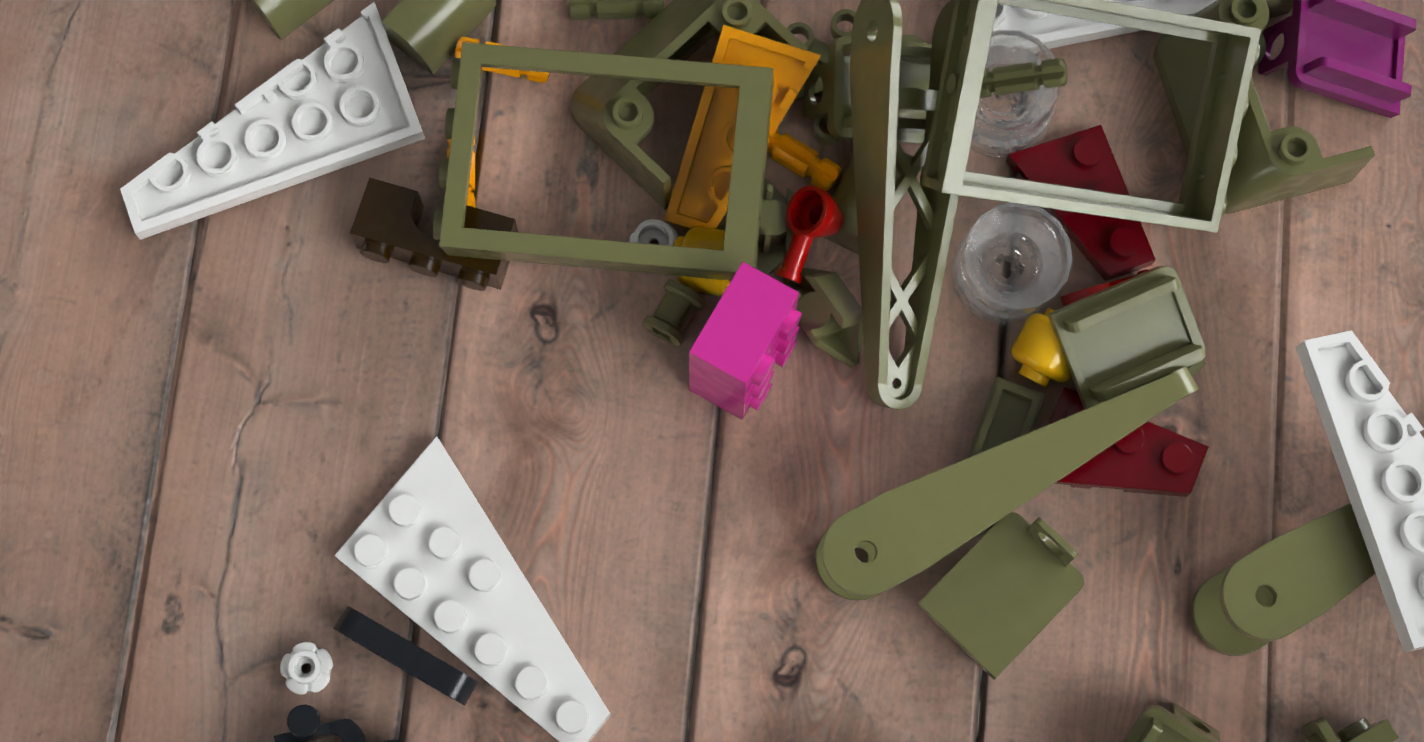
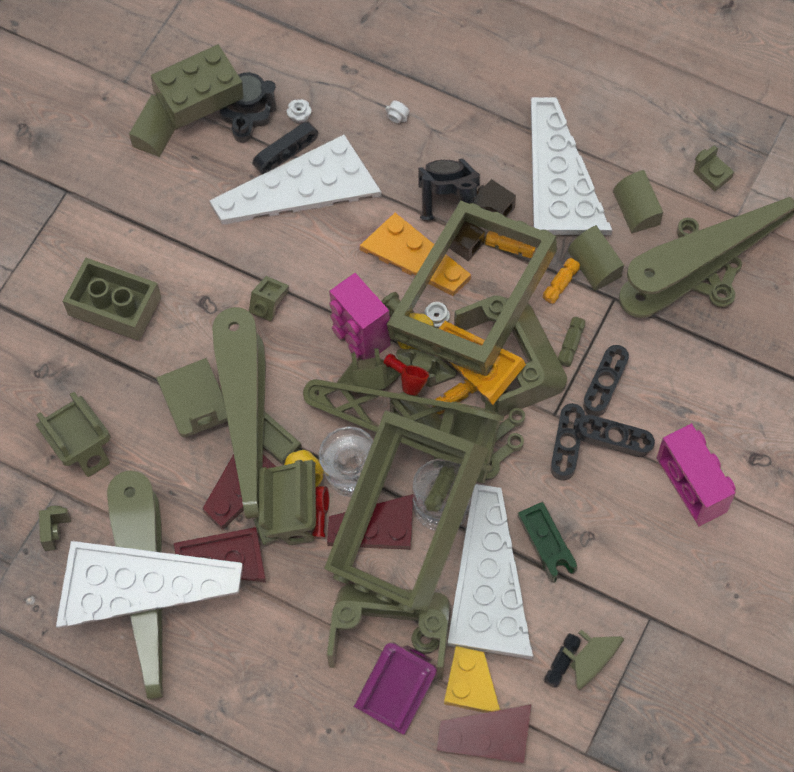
camera: 115 degrees right, 10 degrees down
(248, 474) = (397, 112): none -> white plate
(387, 321) = (447, 178): none -> black piece
(540, 341) = (407, 248): none -> light orange wing
(739, 552) = (266, 297): none -> olive bracket
(1254, 418) = (233, 546): none -> dark red wing

